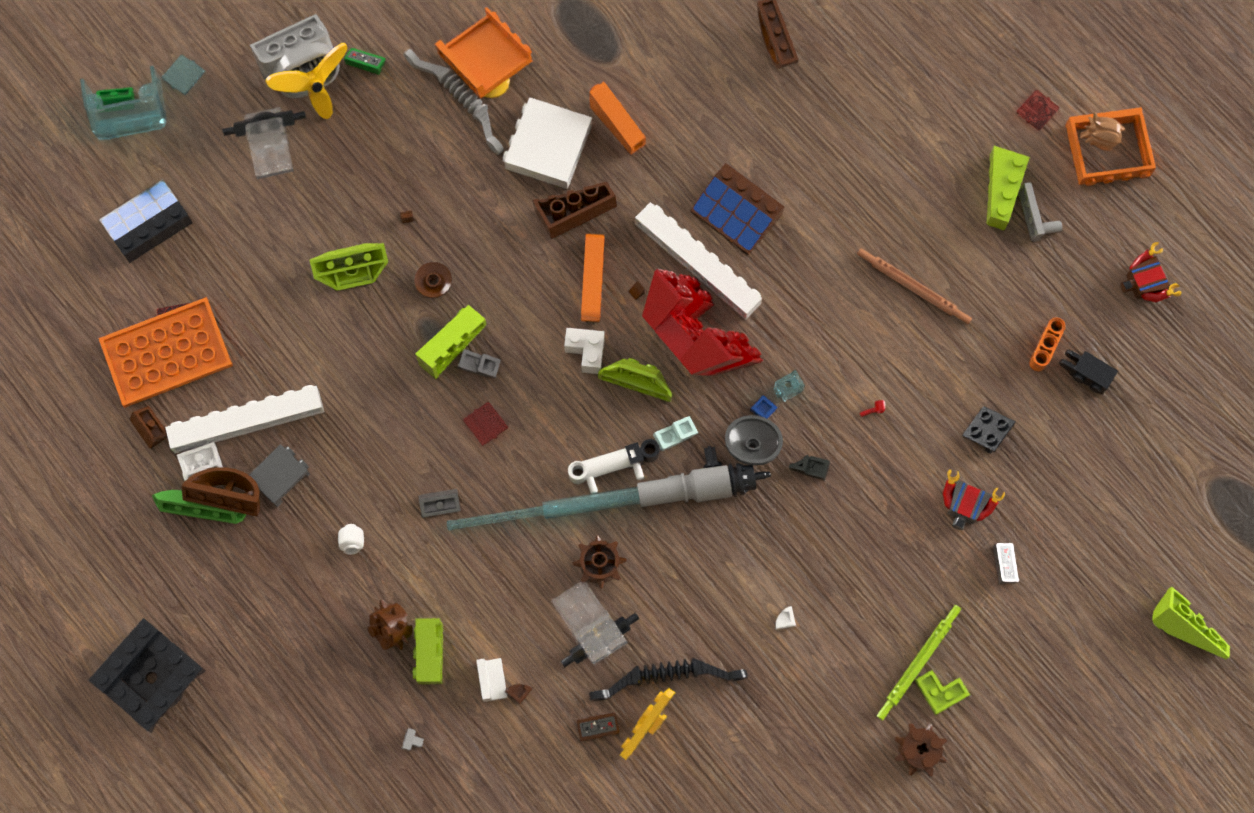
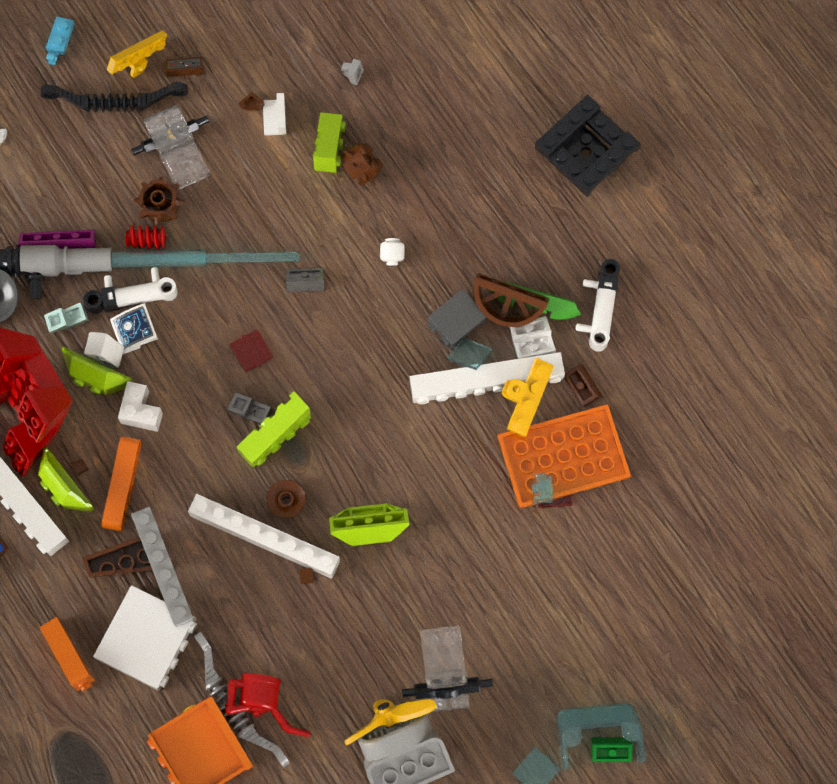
camera: 175 degrees left, 0 degrees up
(125, 524) = (604, 305): none -> white piece
(146, 221) = (581, 601): black slope -> none
(183, 310) = (543, 489): none -> clear light blue brick
(202, 397) = (527, 395): none -> yellow plate
(262, 438) = (469, 354): none -> clear light blue piece
(364, 61) = (333, 763): green slope -> none
(437, 102) = (259, 696): none -> red piece
(449, 243) = (264, 536): none -> white brick
(537, 192) = (162, 567): none -> light grey brick
(605, 429) = (133, 328): none -> slope
(607, 523) = (146, 237): none -> red piece
(628, 393) = (104, 349): none -> white panel
(641, 261) = (61, 485): none -> lime wedge
(698, 511) = (72, 239): none -> magenta brick
(740, 743) = (59, 39): none -> medium azure plate

